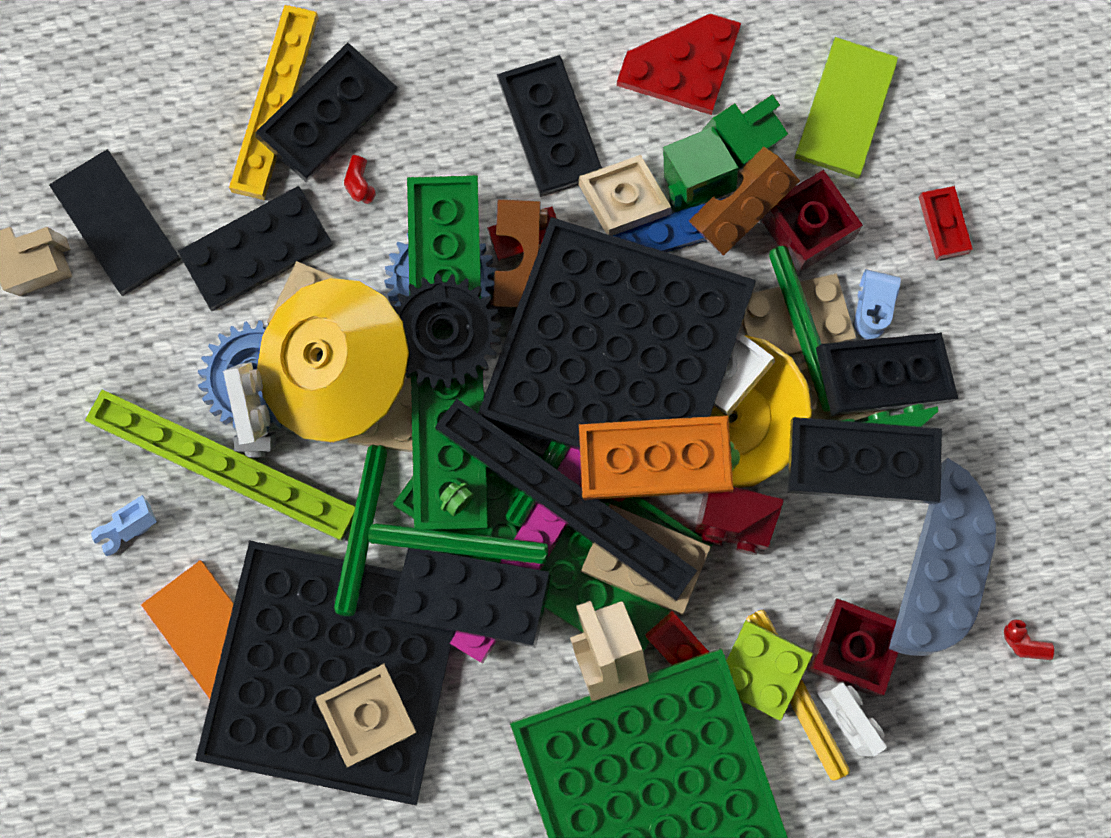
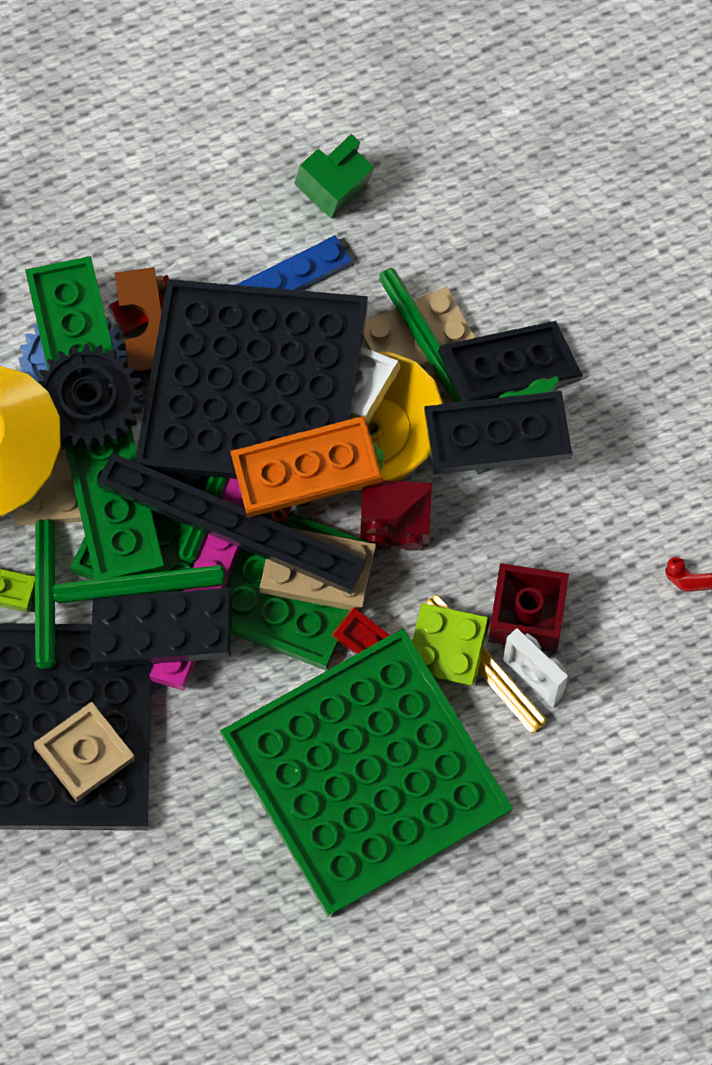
camera: 10 degrees left, 10 degrees down
(456, 498) = (129, 542): bright green plate -> none
(549, 124) = (149, 205): black tile -> none
(608, 651) = (299, 647): tan plate -> none
(624, 195) = (233, 252): tan plate -> none
(683, 64) = (264, 127): red plate -> none
(698, 170) = (298, 217): plate -> none
(763, 186) = (359, 216): dark orange arch -> none
(812, 221) = (412, 242): dark red slope -> none
(846, 108) = (427, 138): lime tile -> none
(878, 300) = (488, 303): light blue piece -> none
(945, 222) = (540, 223): red plate -> none
(947, 567) = (599, 519): sand blue plate -> none

